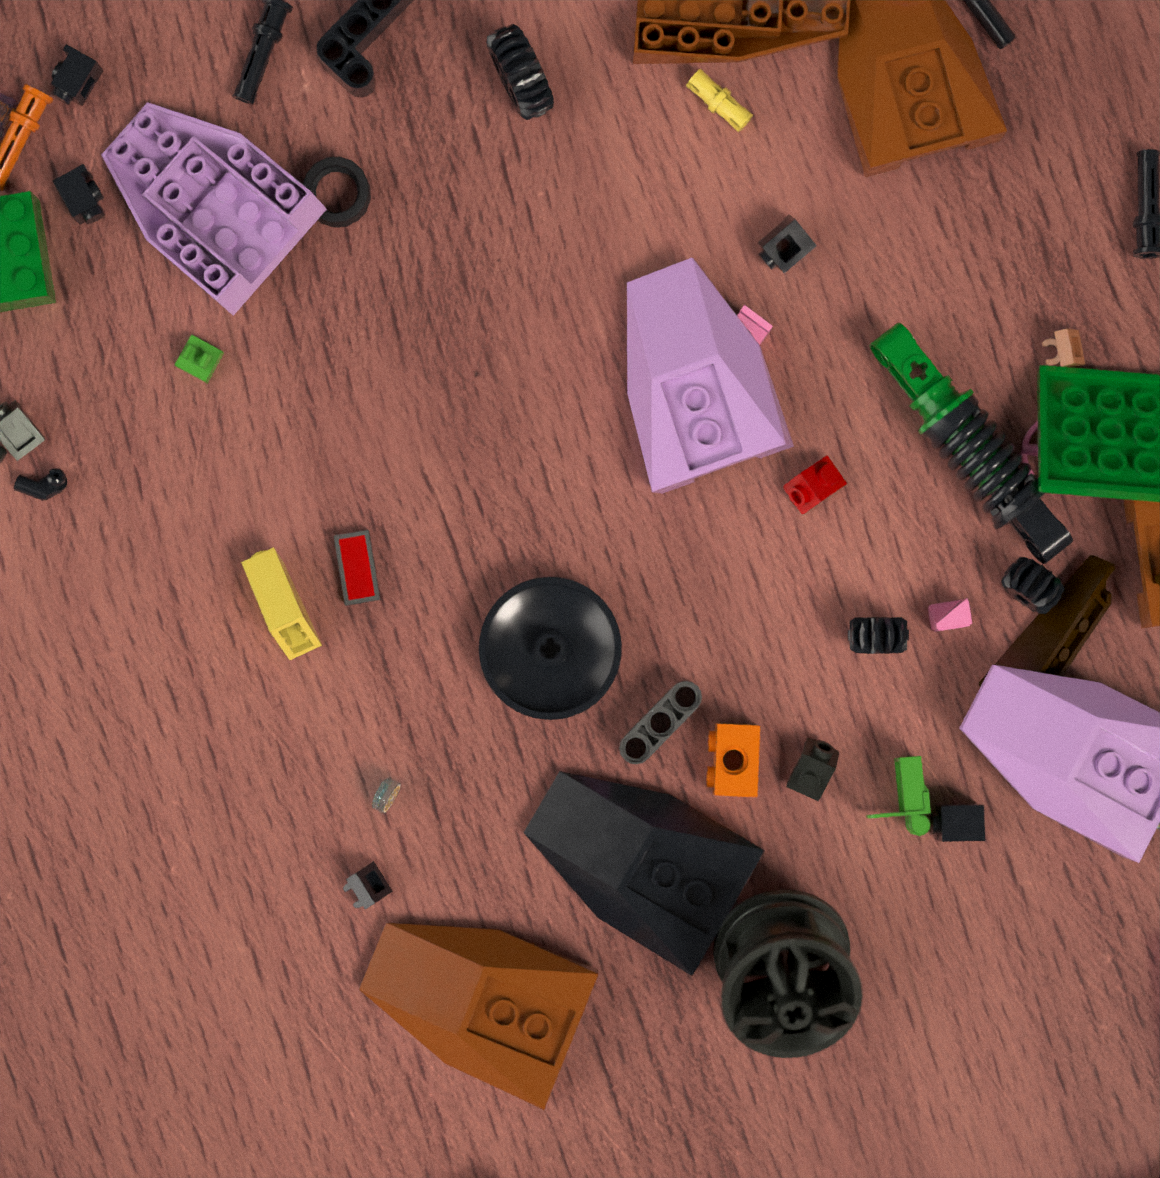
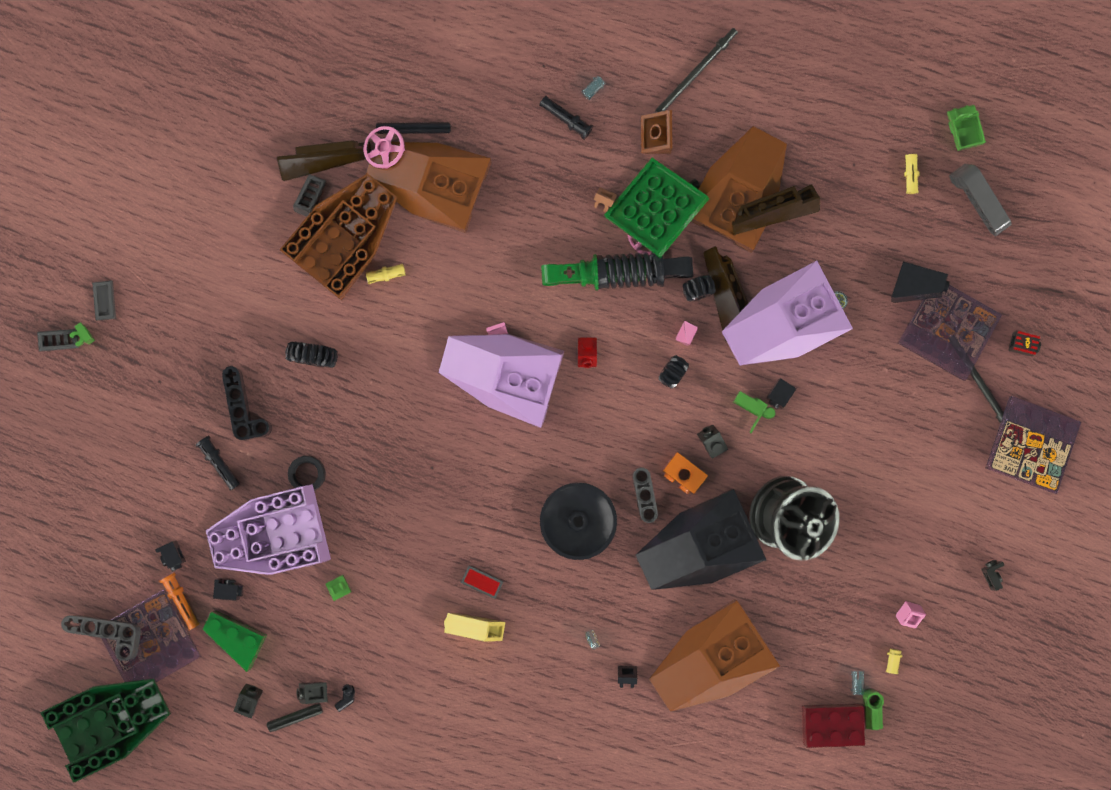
camera: 50 degrees left, 0 degrees up
(798, 245) = (477, 290): black brick -> none

